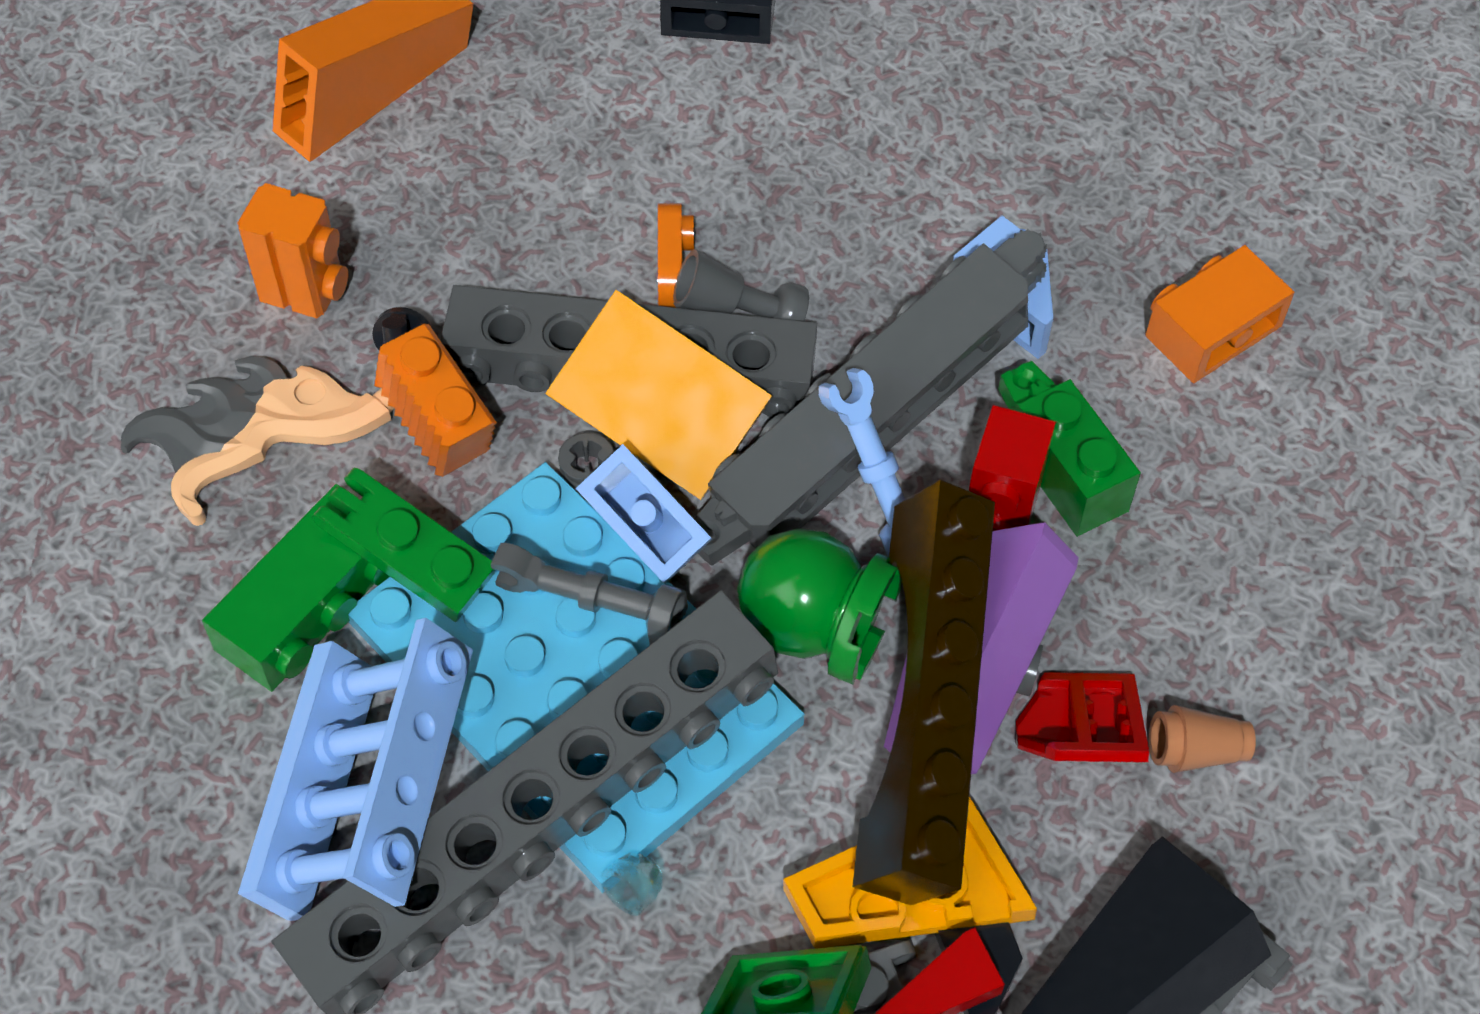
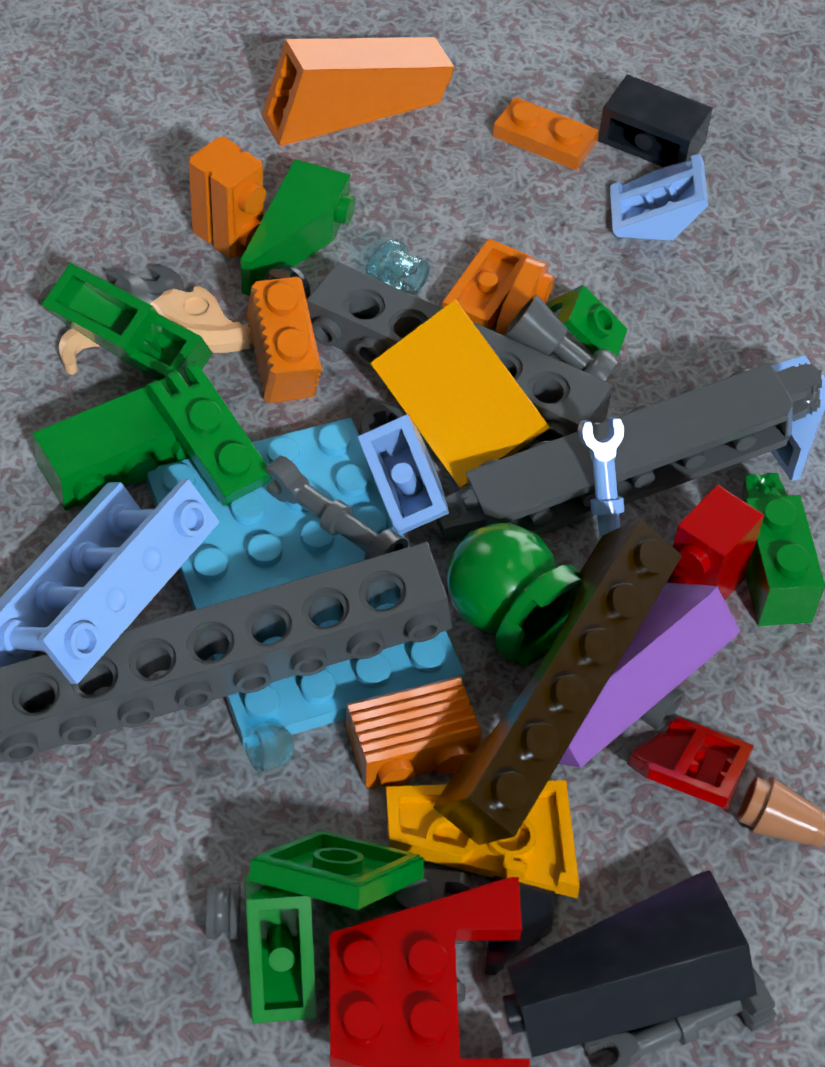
camera: 20 degrees right, 5 degrees down
(245, 448) = (124, 324): none -> green slope
(381, 248) = (298, 221): none -> green slope
(517, 266) = (397, 267): none -> clear light blue wheel
(601, 45) = (545, 133): none -> orange plate
(623, 248) = (487, 282): none -> orange plate
(752, 253) = (589, 320): none -> green bracket
(764, 84) = (660, 201): none -> light blue slope
(783, 805) = (412, 732): none -> orange brick

